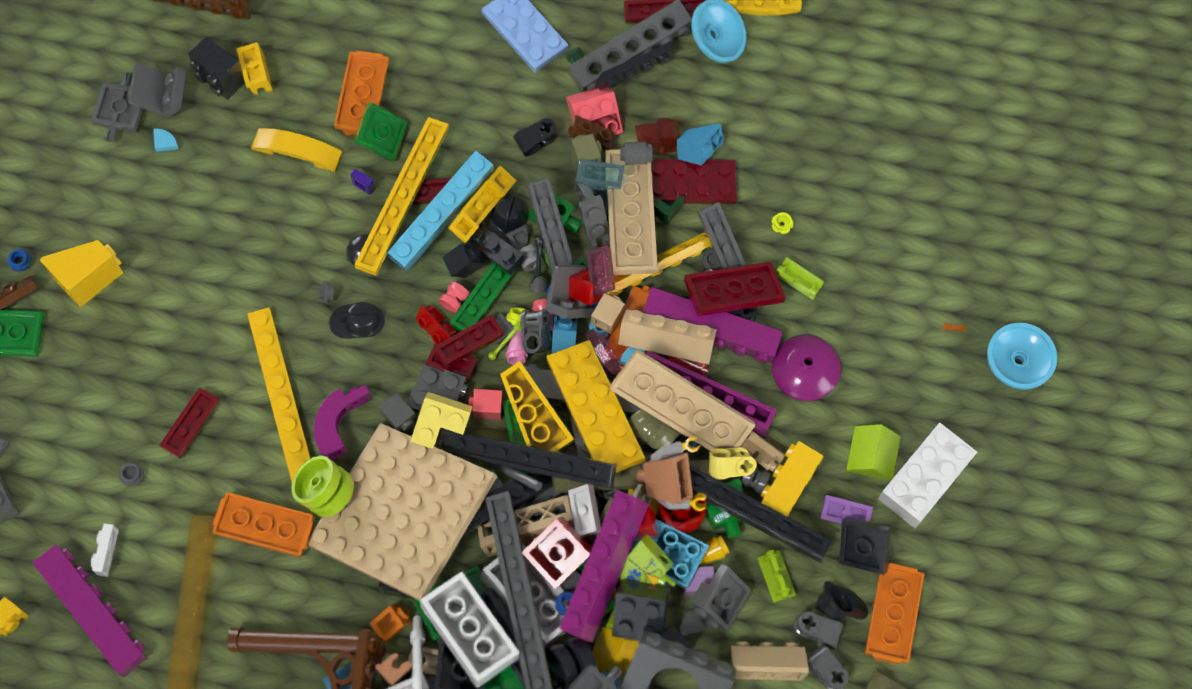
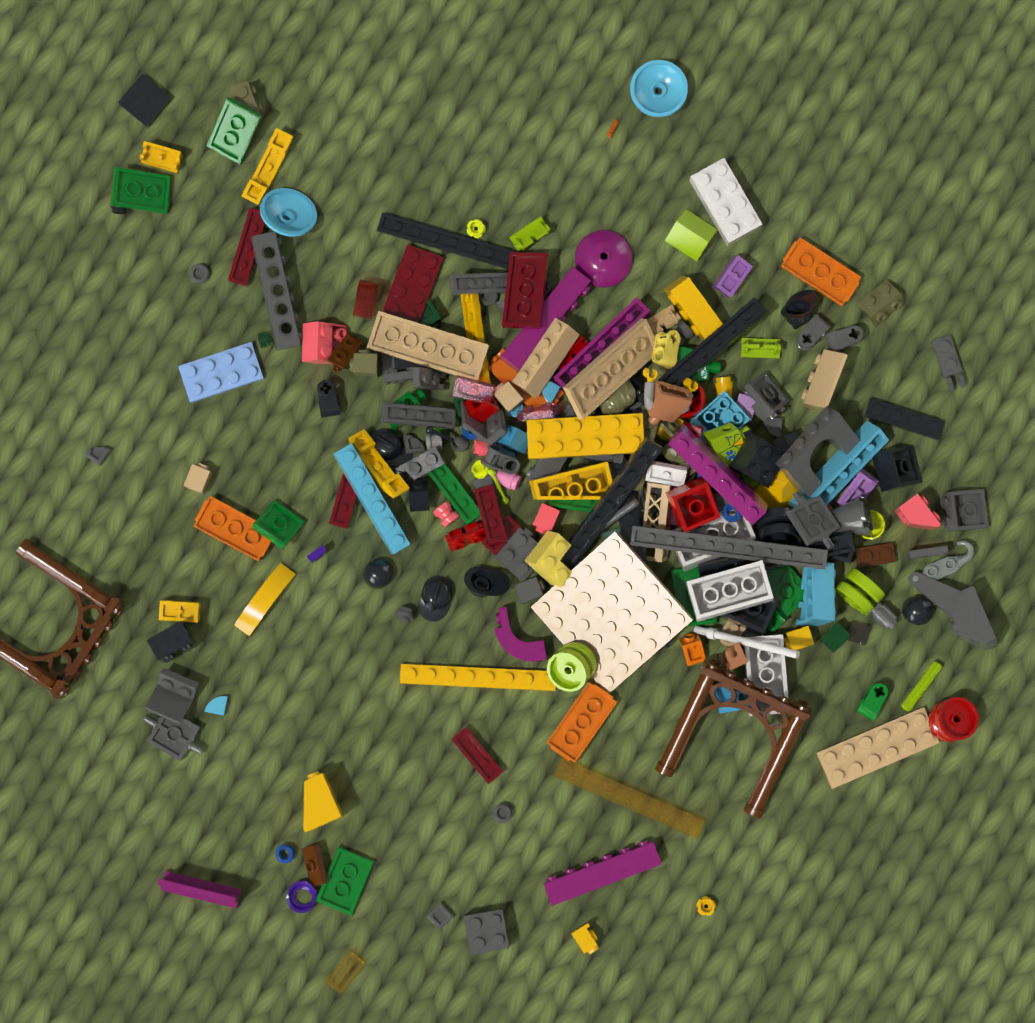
camera: 65 degrees left, 15 degrees up
(106, 544) = (565, 854): white plate -> none
(391, 362) = (486, 582): none -> black piece
(401, 196) = (345, 525): yellow plate -> none
(403, 41) = (198, 478): none -> tan brick
(599, 175) = (392, 360): clear light blue slope -> none
(630, 68) = (299, 301): black plate -> none
(636, 153) = (382, 324): dark grey brick -> none
(699, 143) = (384, 268): dark azure slope -> none
(755, 194) = (444, 240): none -> black tile
(864, 545) = (765, 273): black plate -> none

